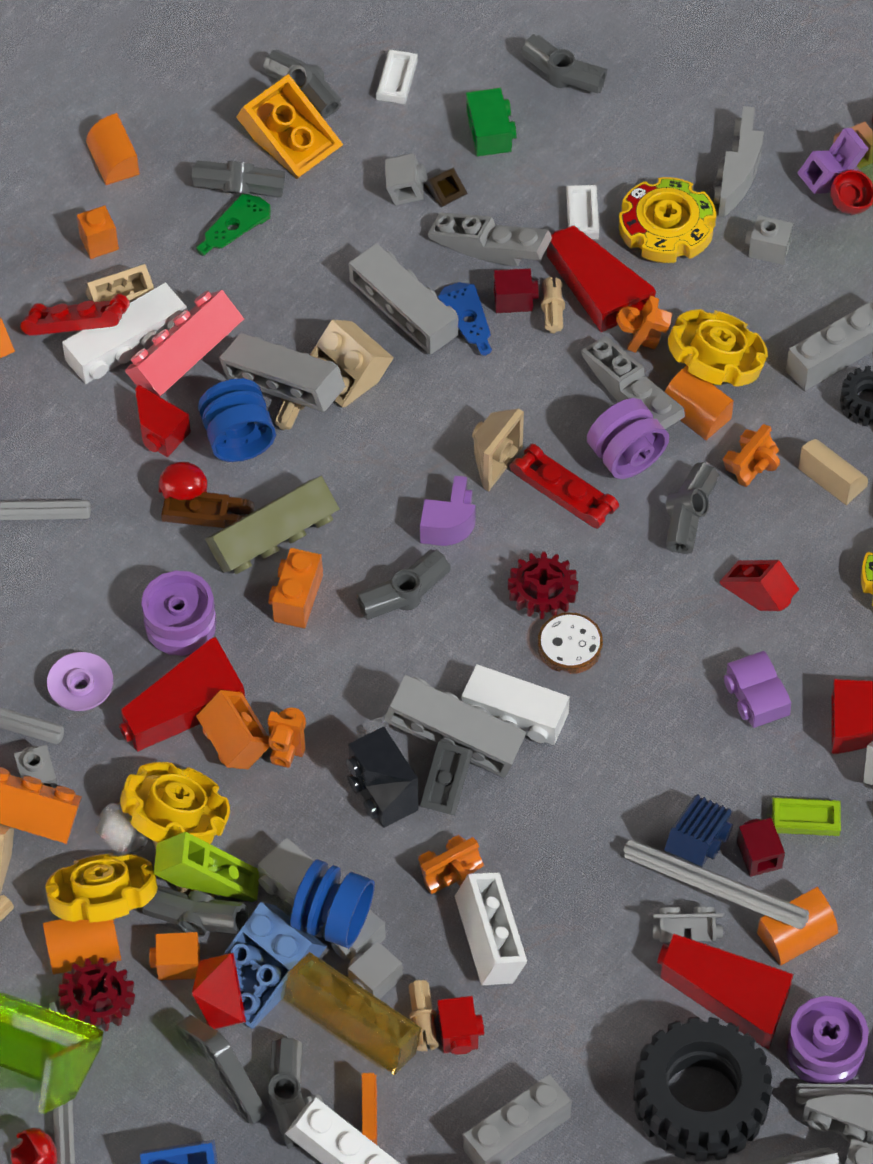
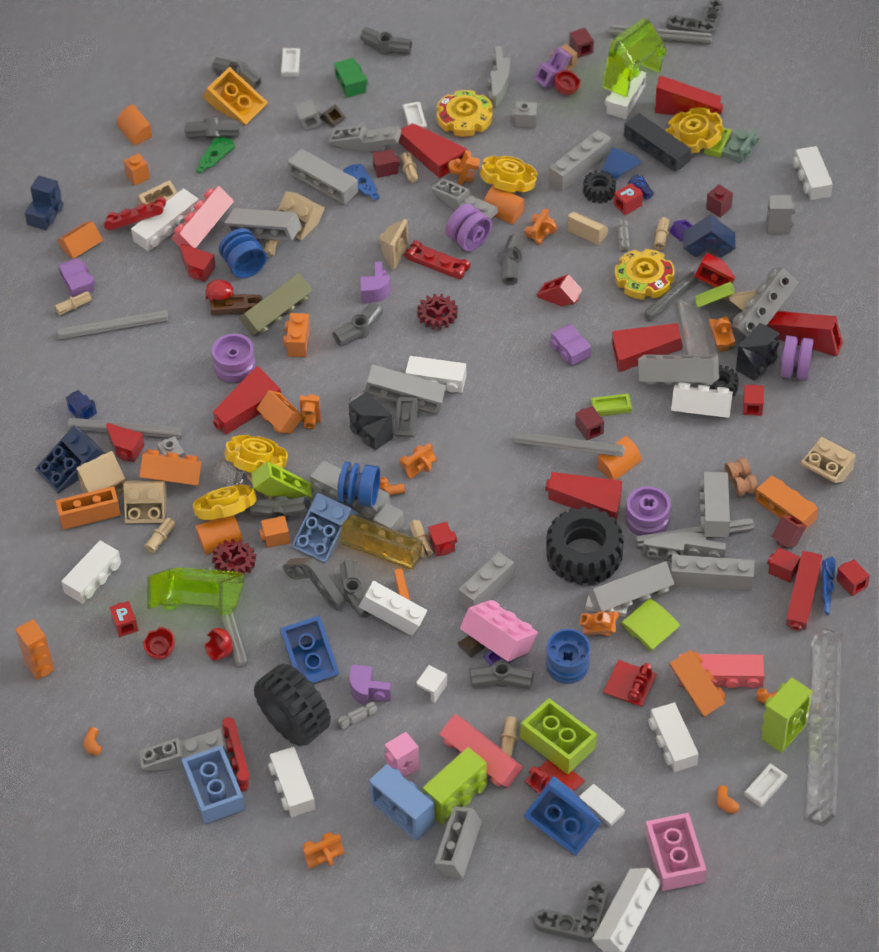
camera: 10 degrees left, 5 degrees down
(77, 670) = (184, 397): lavender dish -> none
(219, 992) = (303, 543): red slope -> none
(389, 908) = (391, 489): none -> orange arm
(490, 929) = (448, 487): white brick -> none
(570, 643) = (459, 339): white tile -> none
(699, 831) = (554, 419): dark blue brick -> none
(702, 924) = (565, 465): light grey hinge -> none

